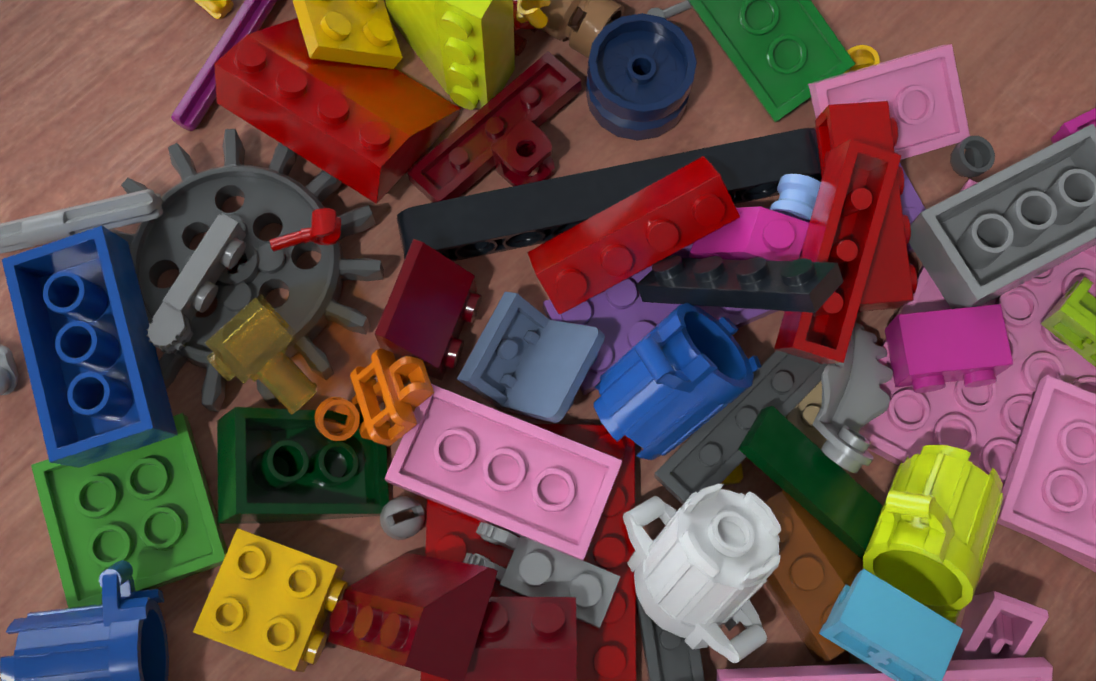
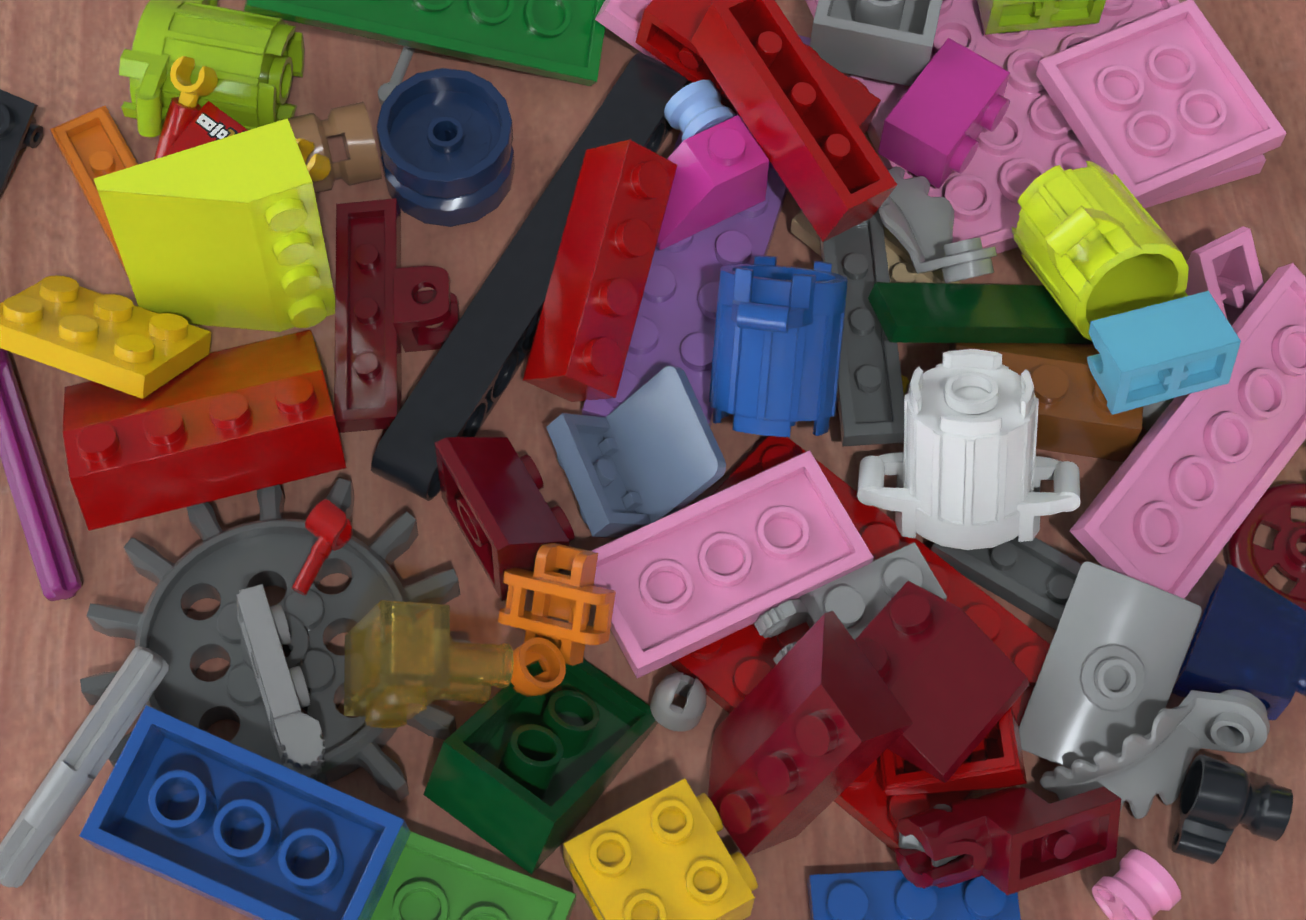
camera: 50 degrees left, 10 degrees down
(741, 283) = (745, 208): black plate -> none

